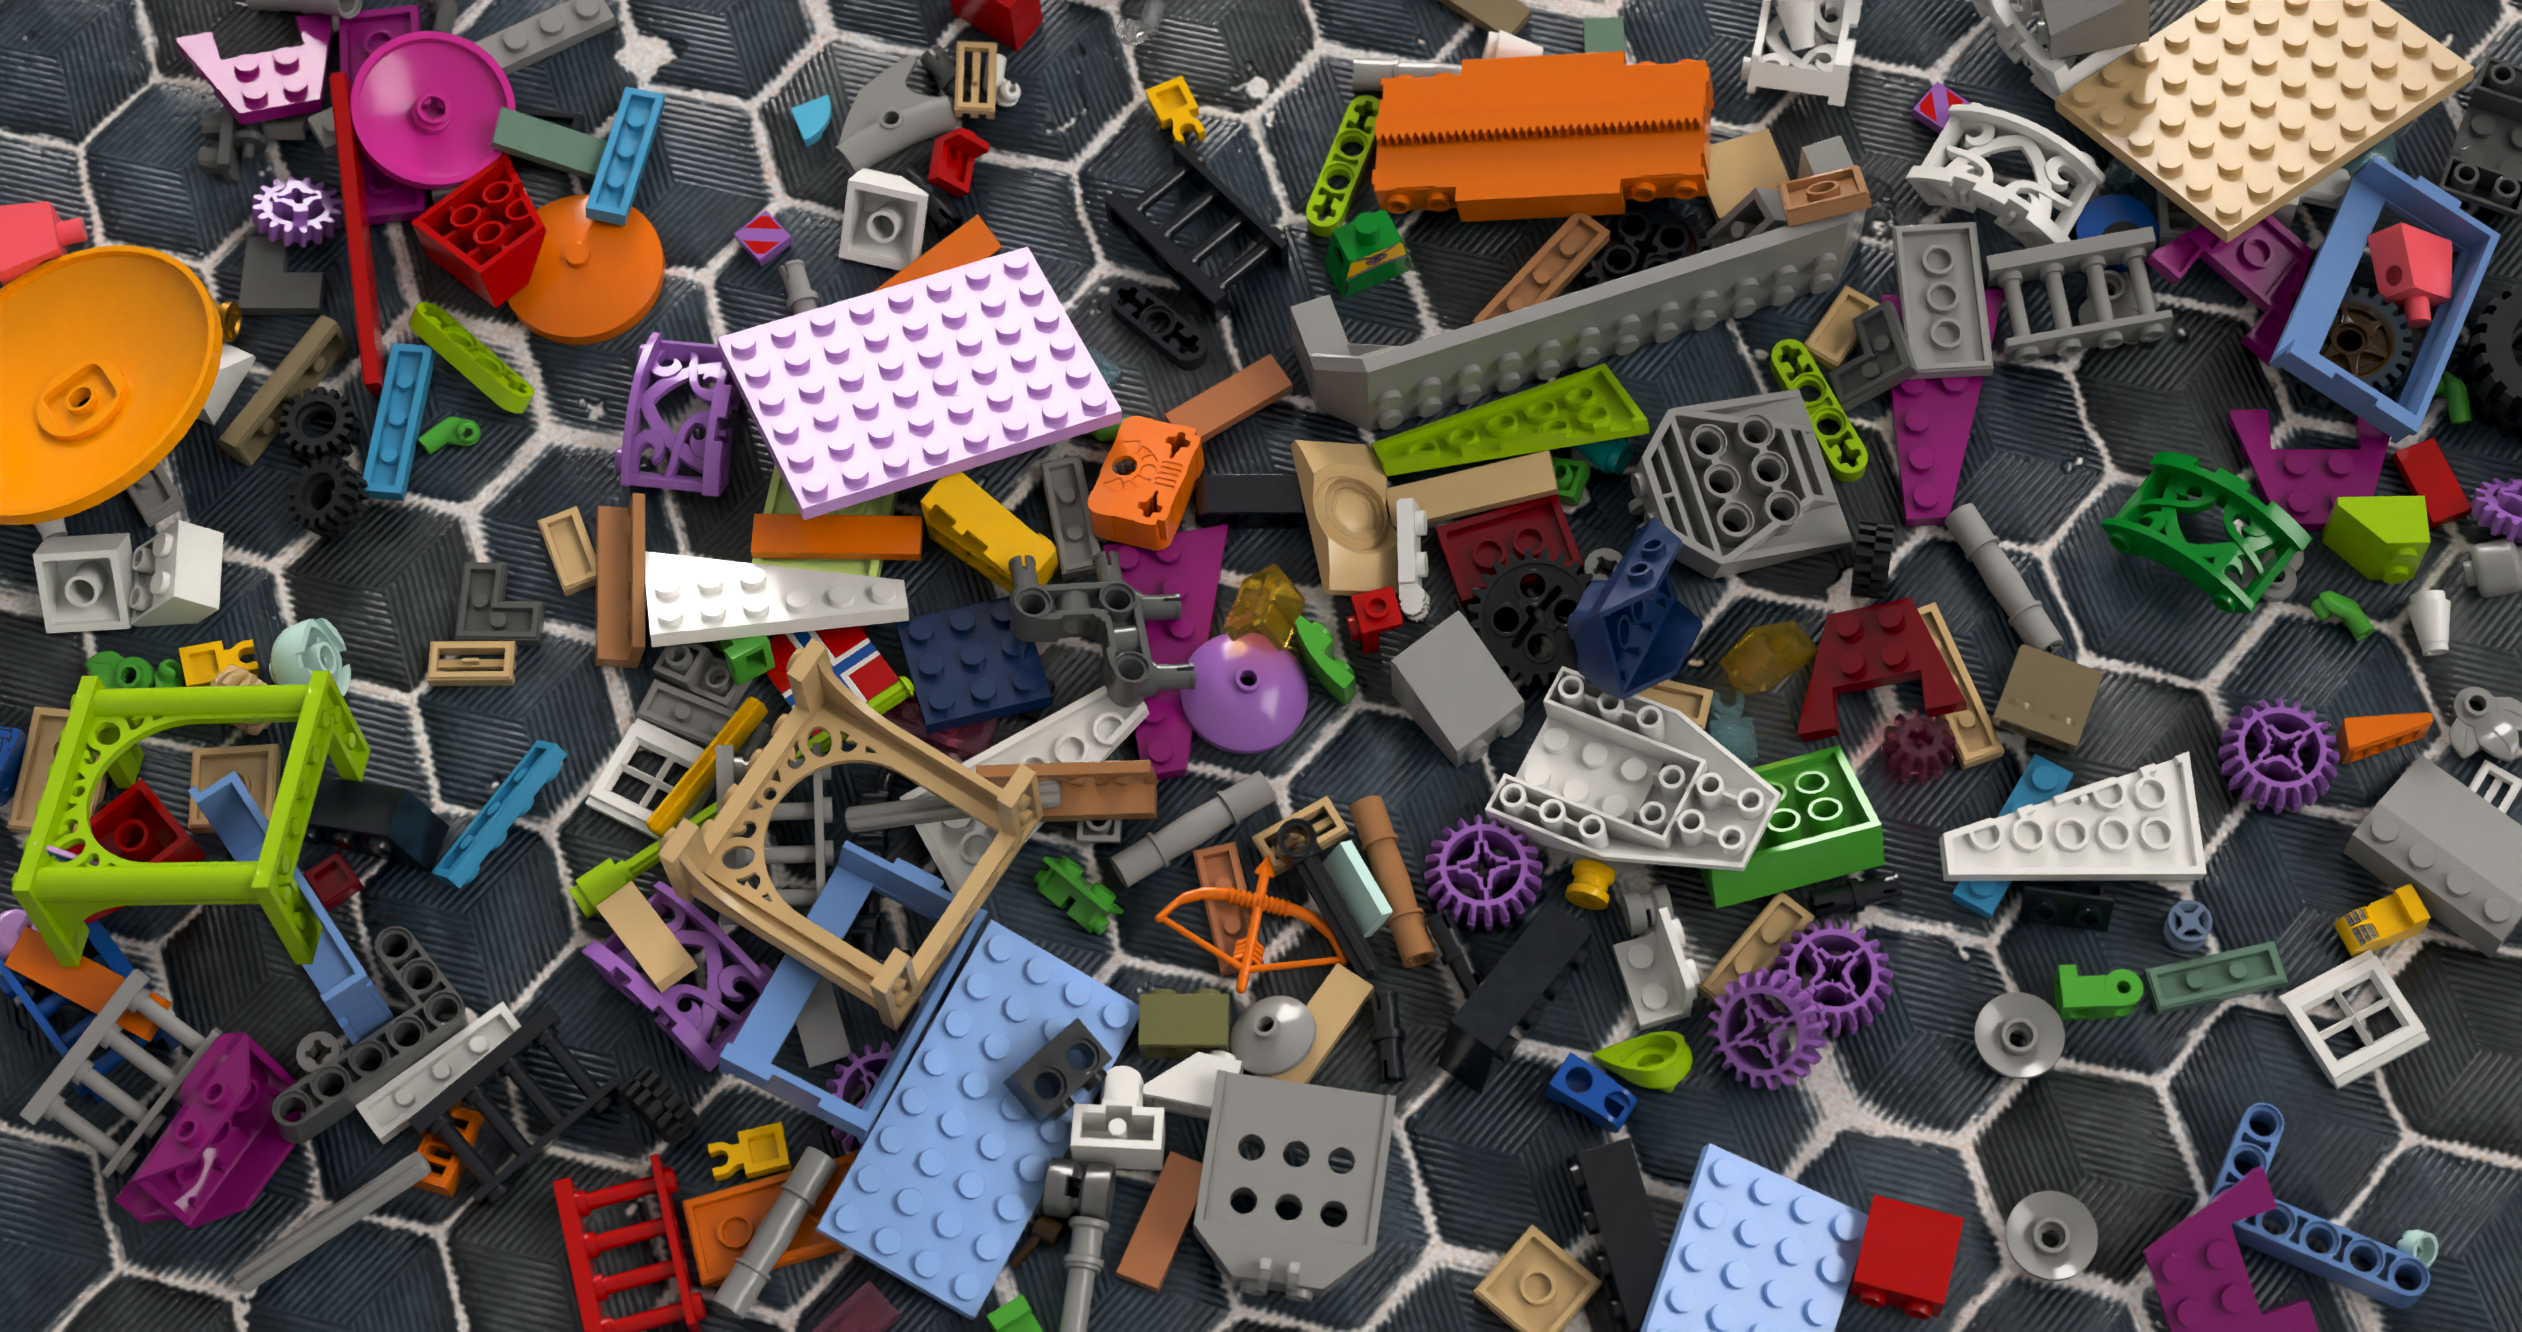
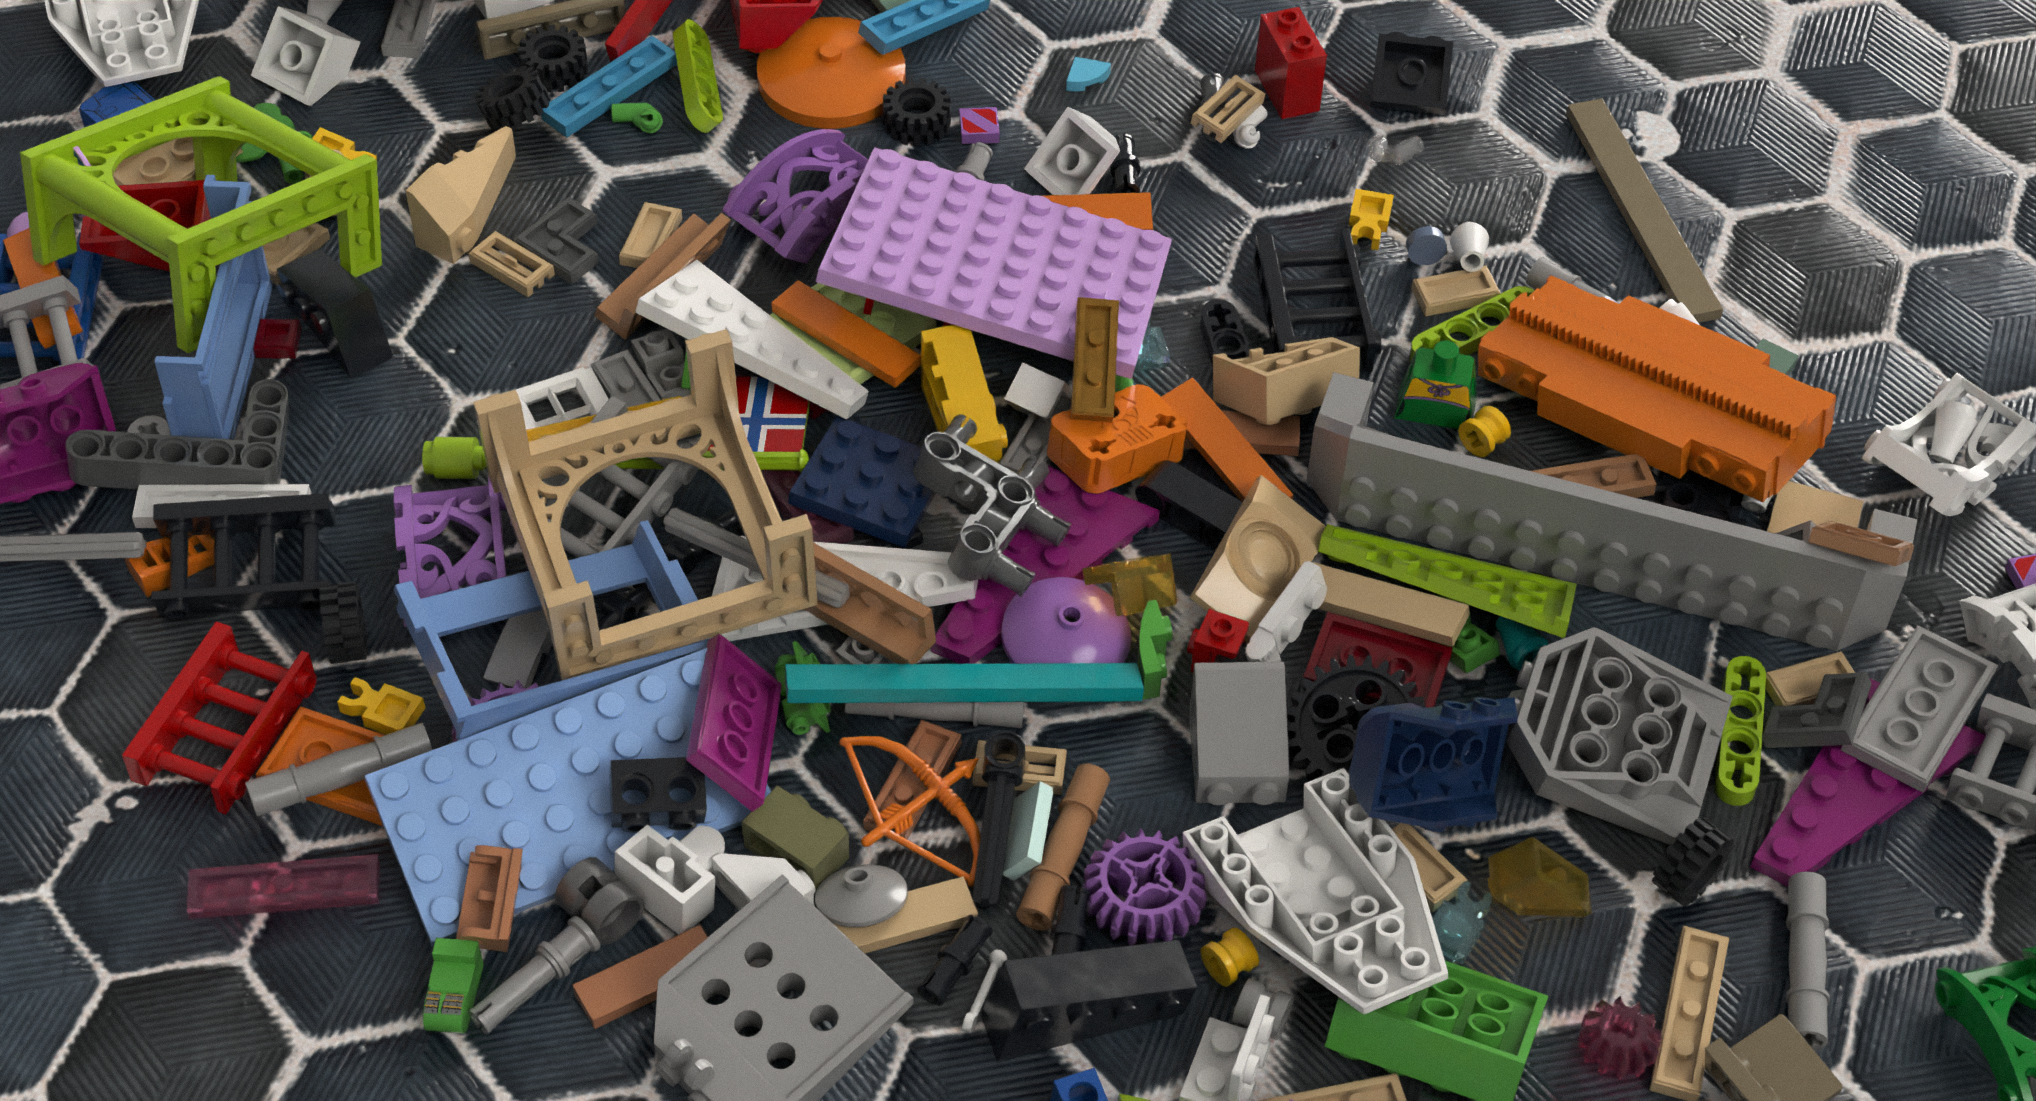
camera: 30 degrees right, 15 degrees down
(177, 576) = (366, 86): white slope -> none
(309, 648) = (395, 174): light aqua cylinder -> none
(376, 642) = (455, 199): none -> tan wedge
(491, 824) = (448, 363): dark azure plate -> none
(646, 936) = (445, 500): tan tile -> none
(702, 282) = (917, 97): none -> black tyre
(890, 119) = (1144, 102): light grey pin -> none
(954, 160) = (1167, 152): red bracket -> none
(1000, 1252) = (490, 896): none -> nougat hinge
(1044, 1230) = (546, 915): dark brown hand -> none
(1046, 484) = (1036, 391): none -> white panel
(1066, 966) = (734, 722): none -> magenta tile
(1088, 429) = (1094, 359): none -> pearl gold tile
(1209, 800) = (963, 683): none -> teal tile
(1232, 426) = (1220, 440): none -> orange tile
(1242, 331) = (1282, 382): none -> tan wedge
(1246, 109) = (1426, 245): none -> sand blue tile
(1283, 85) = (1470, 244): none -> white cone
(1300, 136) = (1454, 291): none -> tan tile
(1416, 1012) = (996, 961): none -> white hinge
(1430, 266) = (1484, 431): none -> yellow wheel
(1870, 651) = (1632, 934): dark red wing -> none

